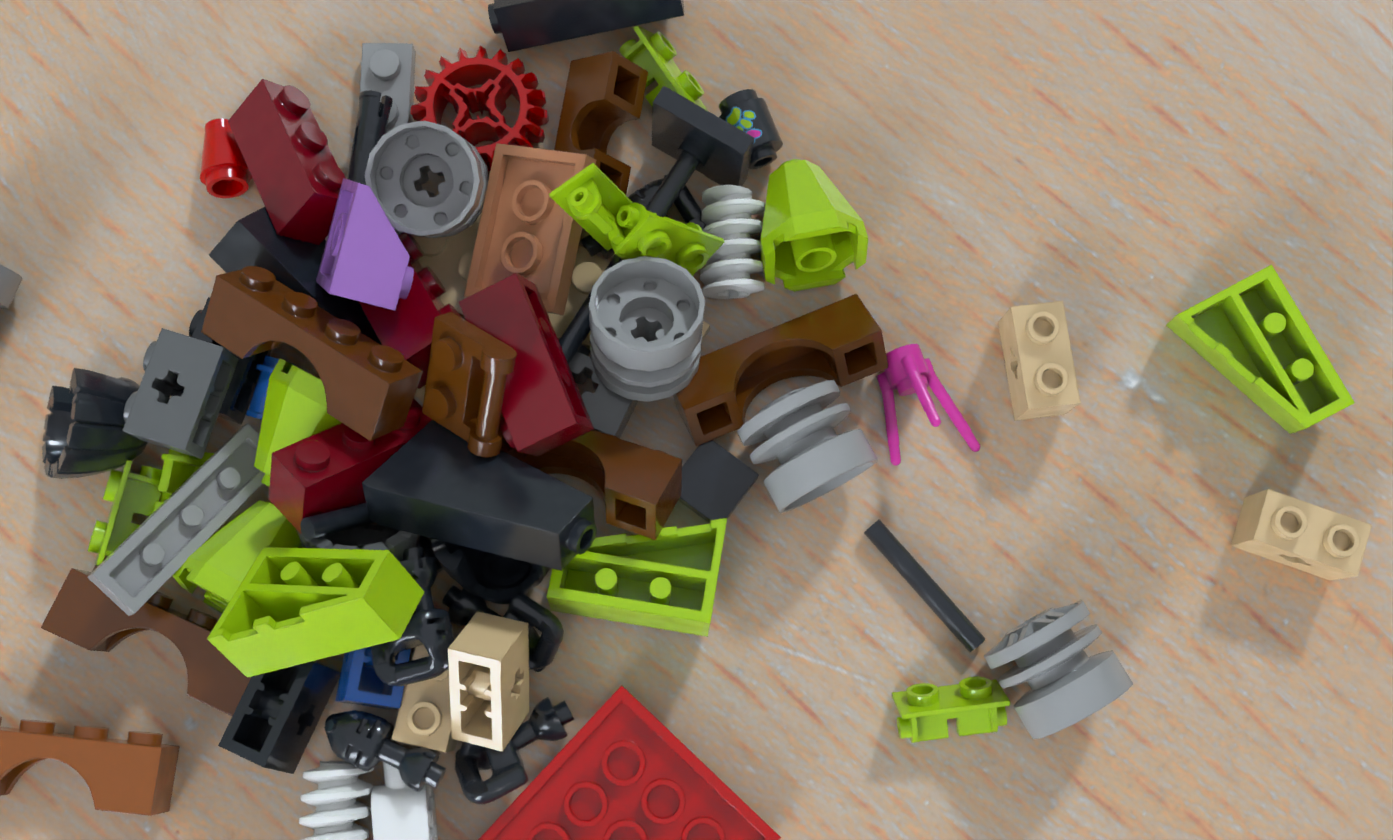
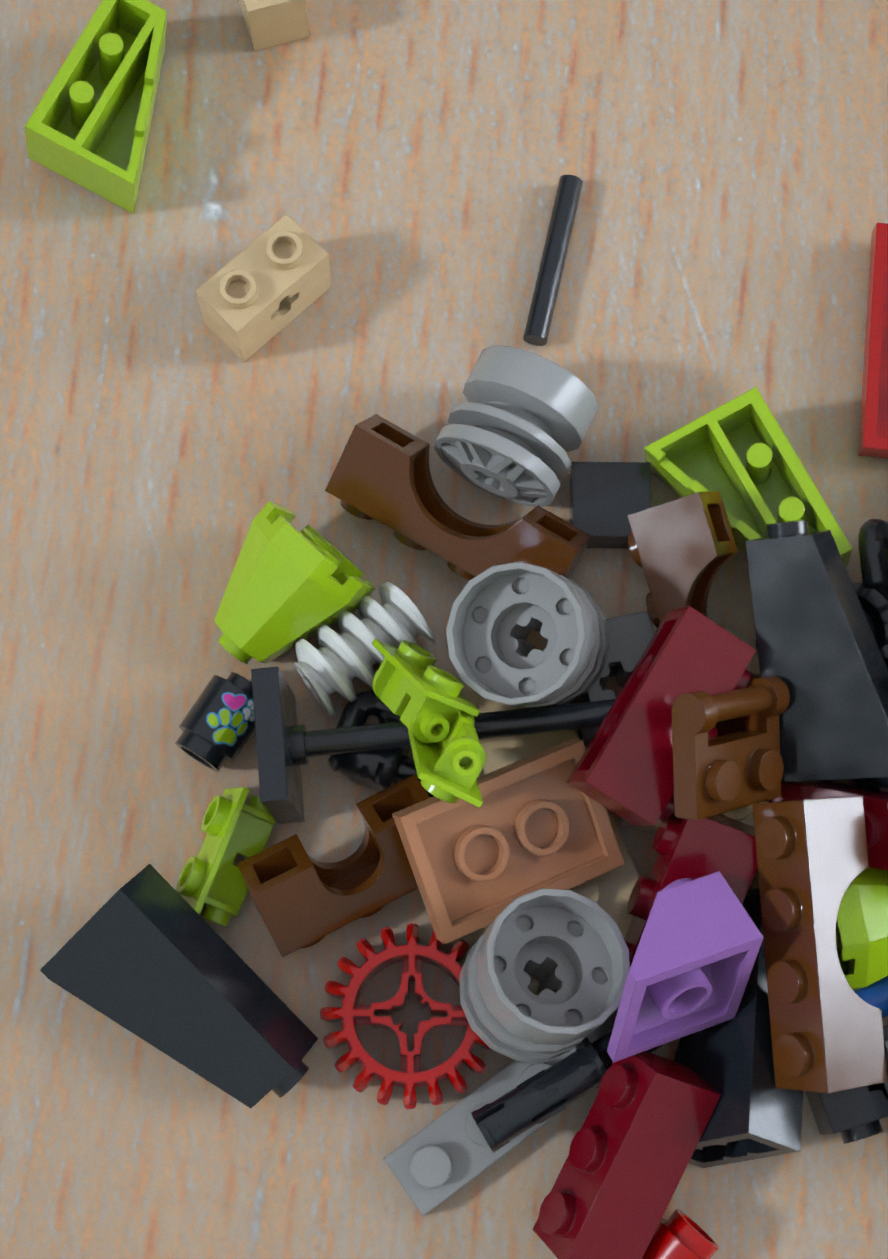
camera: 125 degrees left, 5 degrees down
(910, 375) = (363, 393): dark pink plant -> none
(974, 703) = (636, 160): lime hinge -> none
(1061, 675) = (550, 83): light grey wheel -> none

